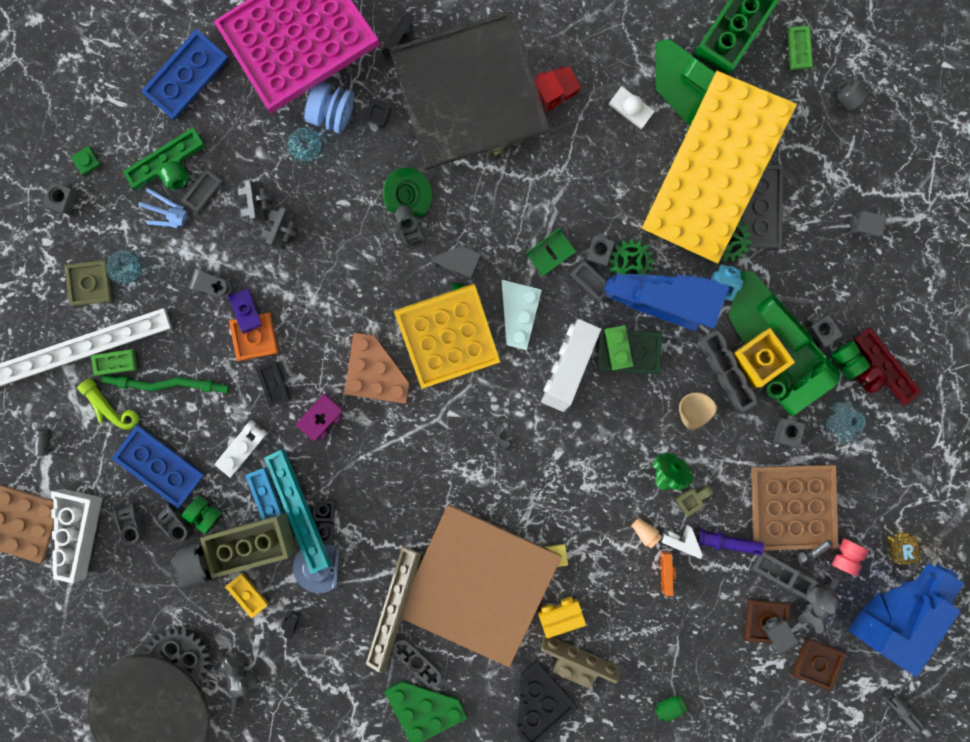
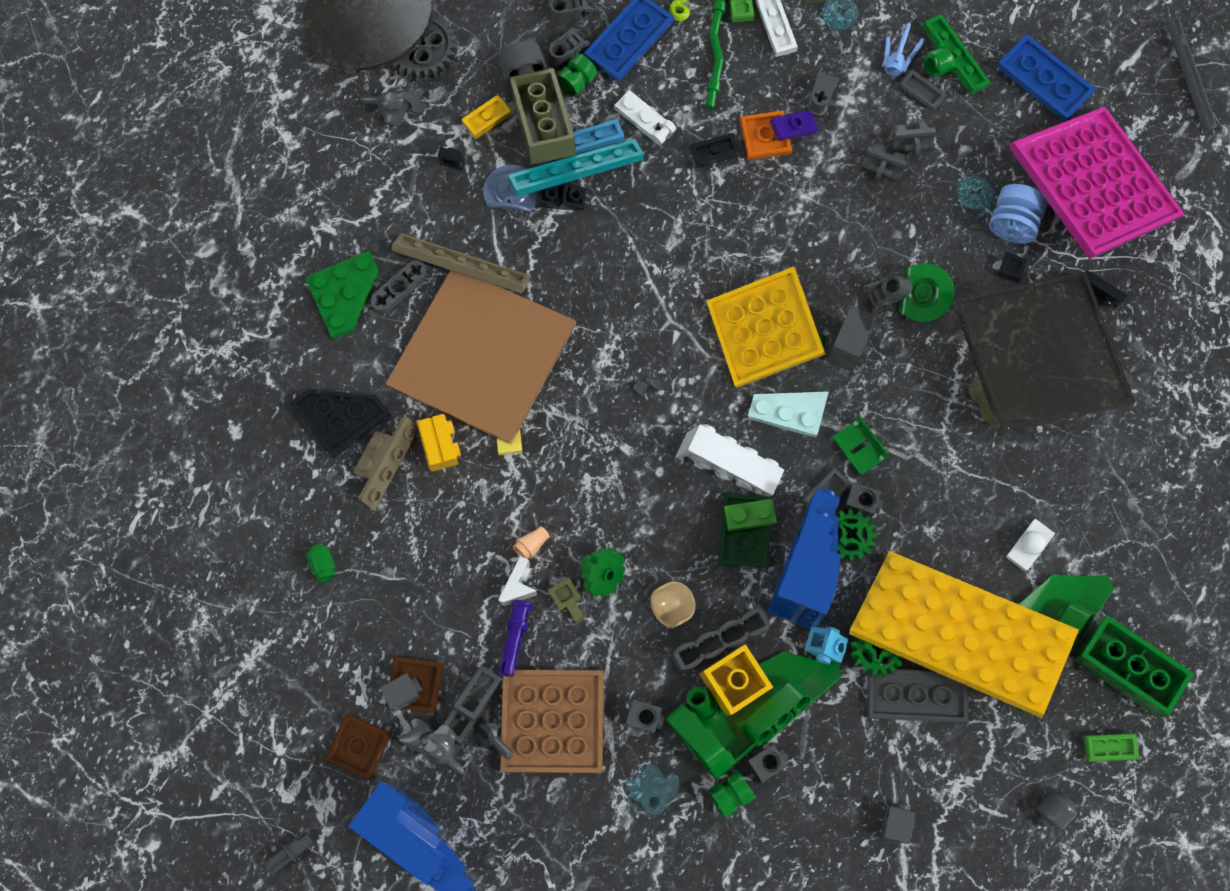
camera: 85 degrees right, 15 degrees down
(309, 422) = (674, 185): magenta brick -> none
(374, 372) = (725, 254): nougat plate -> none
(556, 87) = (1047, 456): red brick -> none
(668, 573) = (482, 565): orange plate -> none
(850, 557) = (487, 786): coral wheel -> none
(884, 369) = (719, 839): dark red plate -> none
(904, 548) = (495, 856): clear yellow brick -> none

